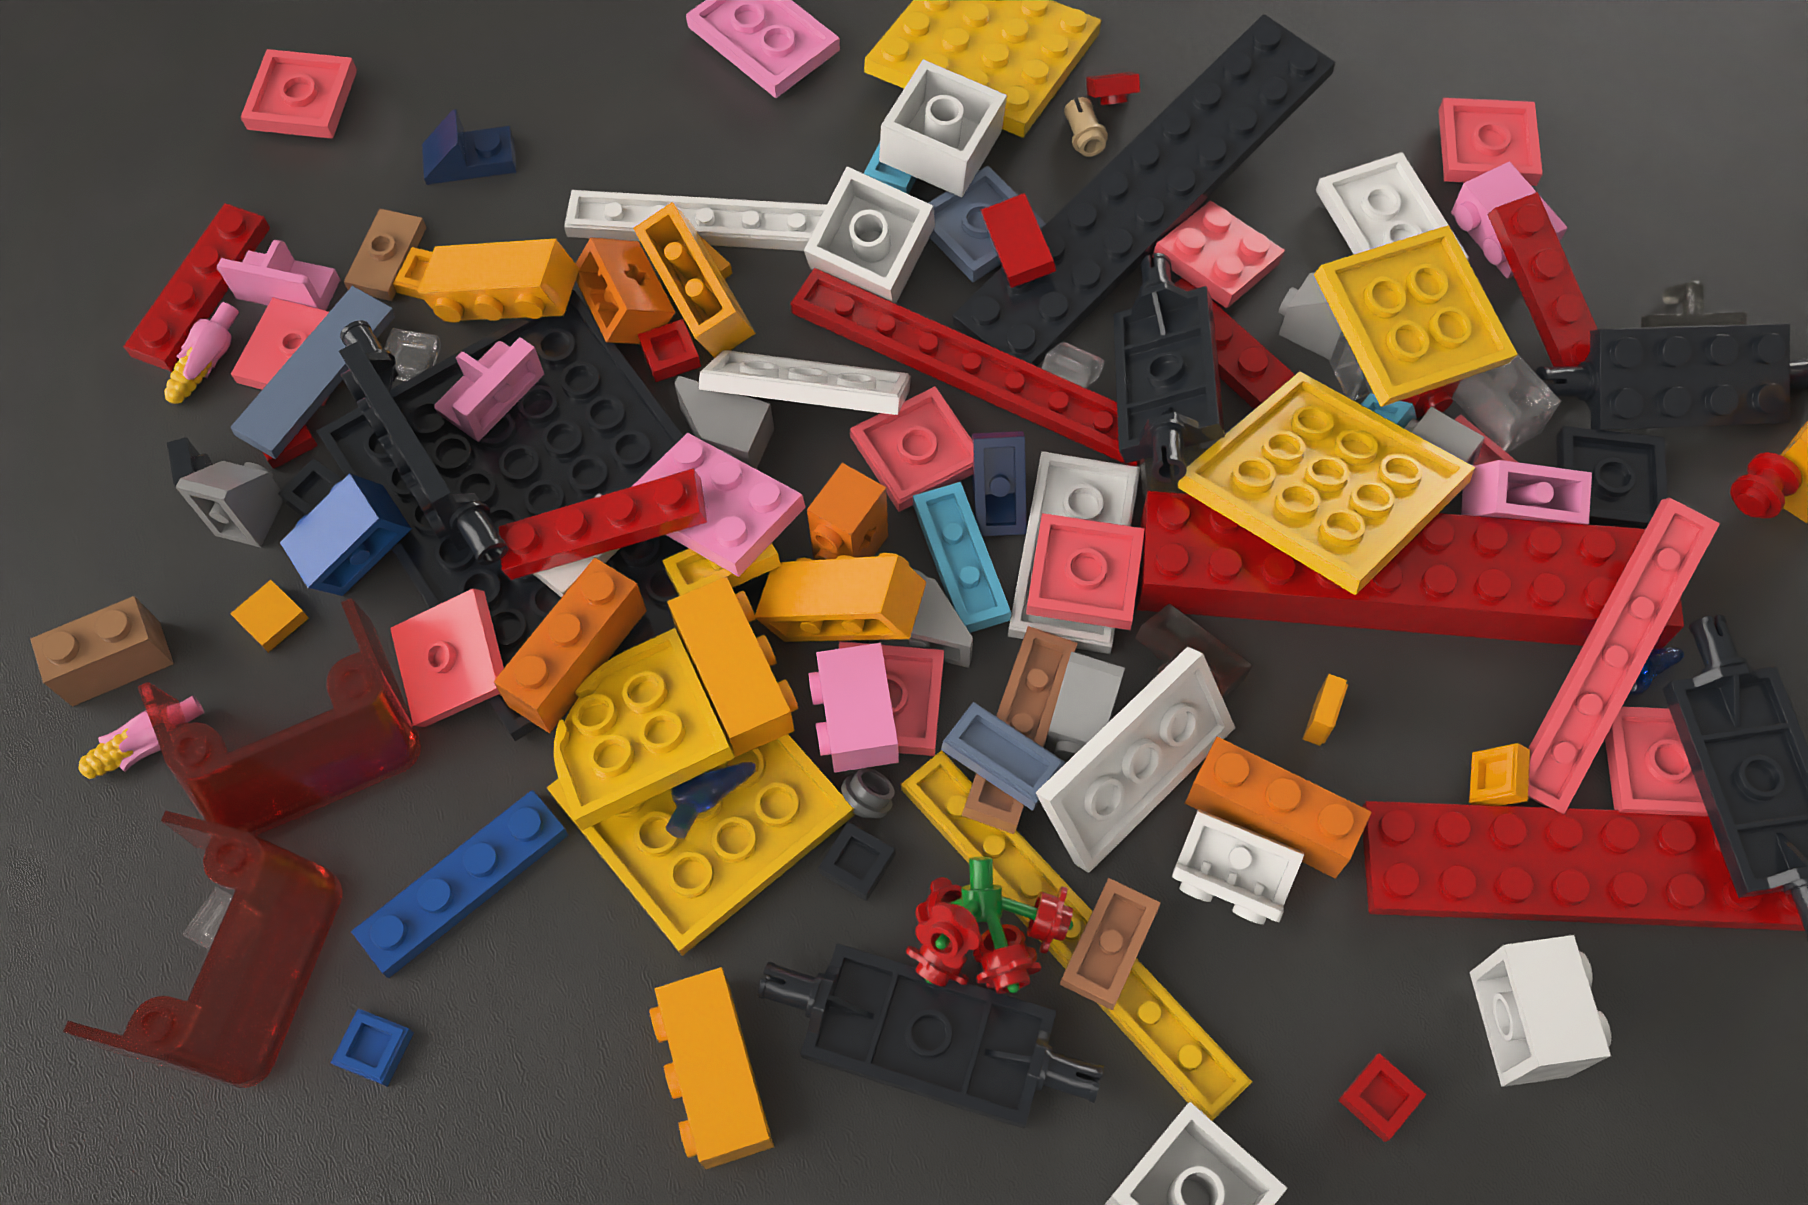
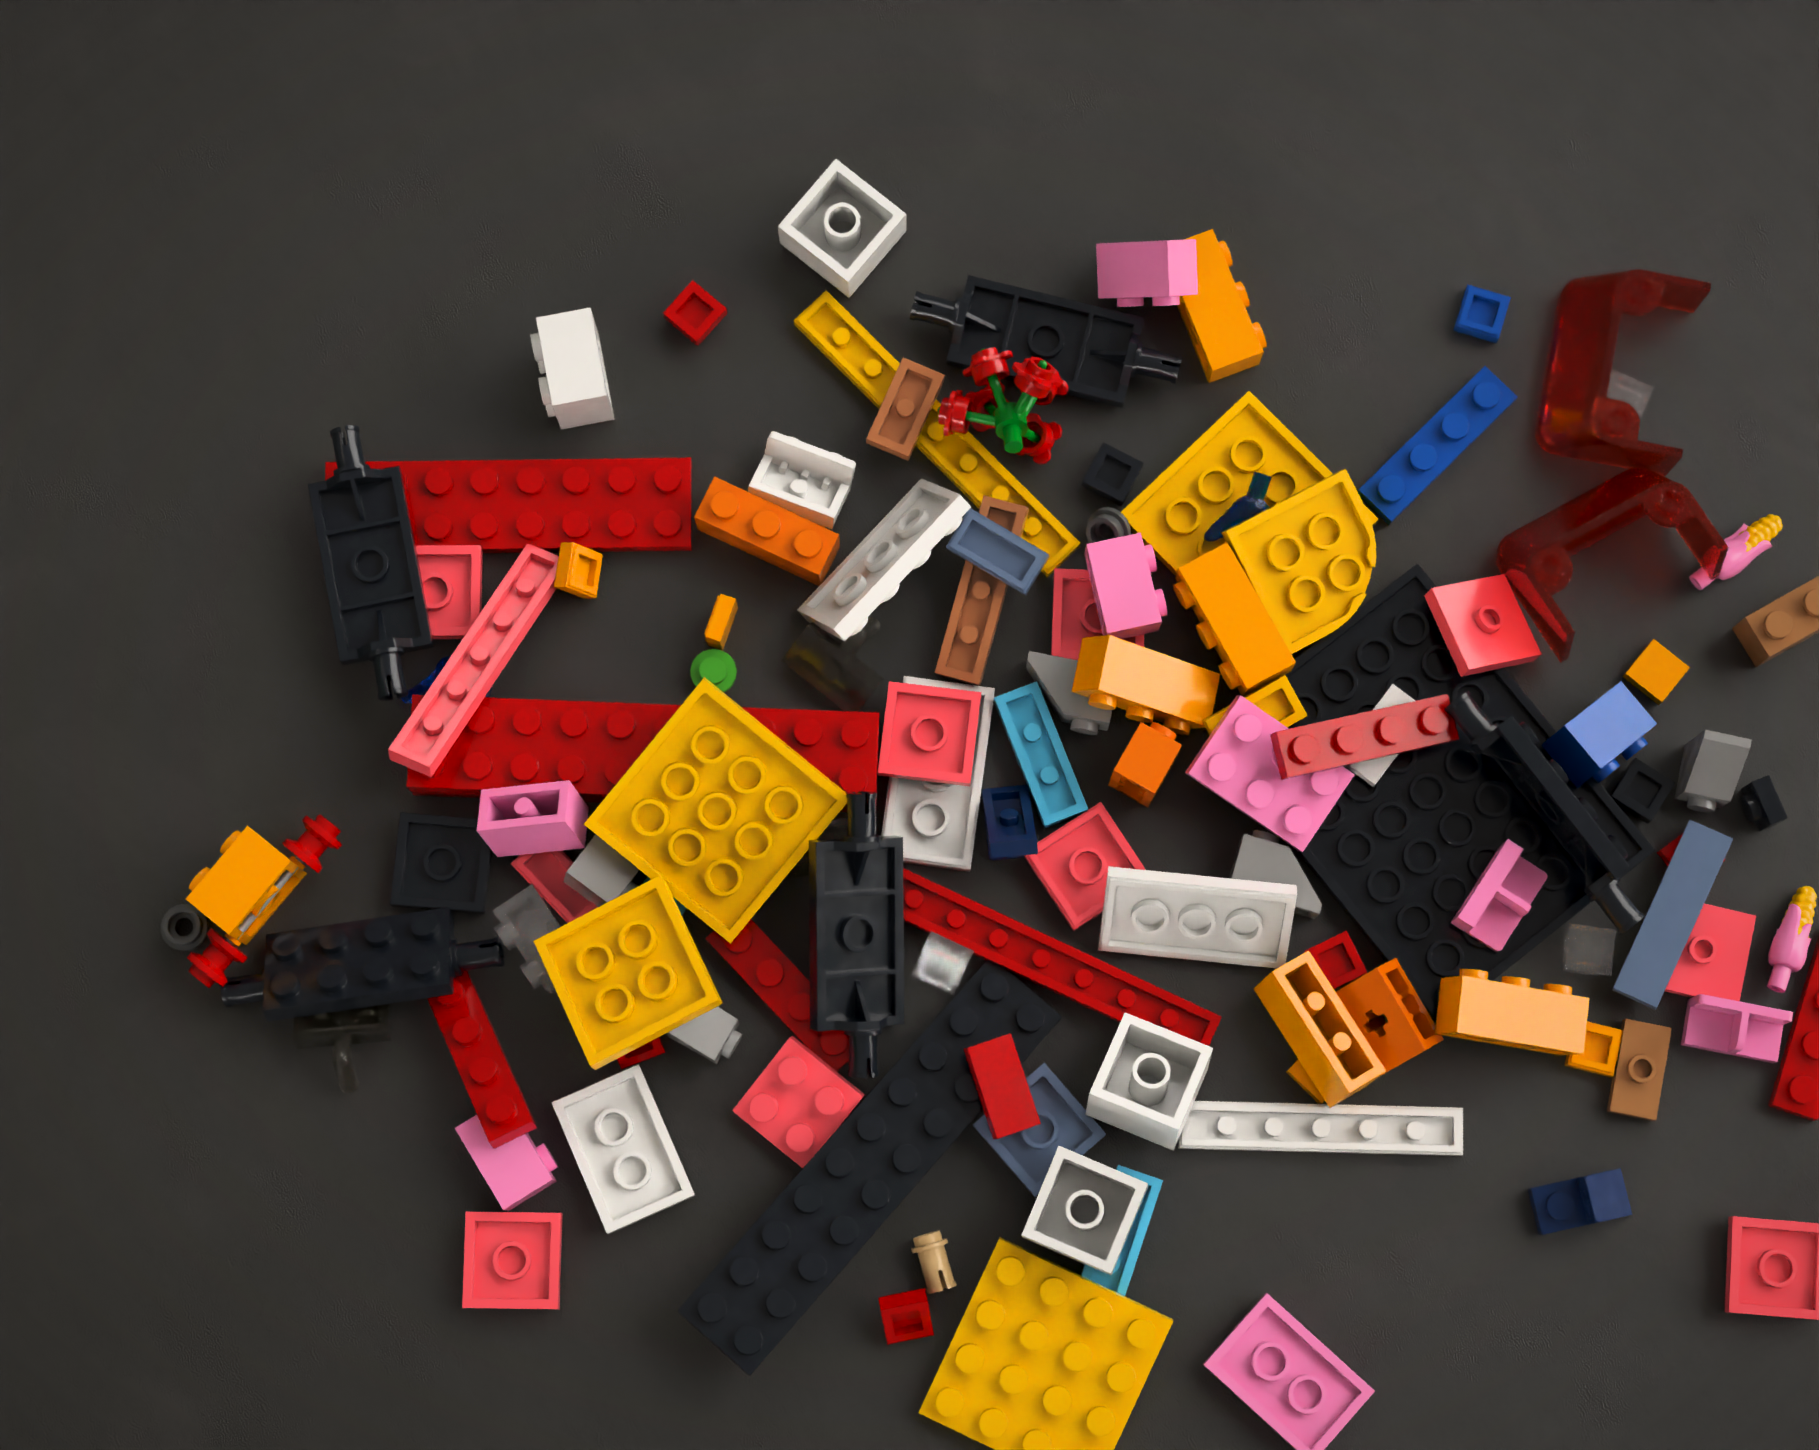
camera: 175 degrees right, 15 degrees up
(571, 644) = (1374, 629): orange brick -> none
(791, 1103) = (1147, 270): none -> bright pink brick
(1083, 704) = (929, 601): light grey slope -> none
(1328, 656) = (716, 667): none -> bright green plate

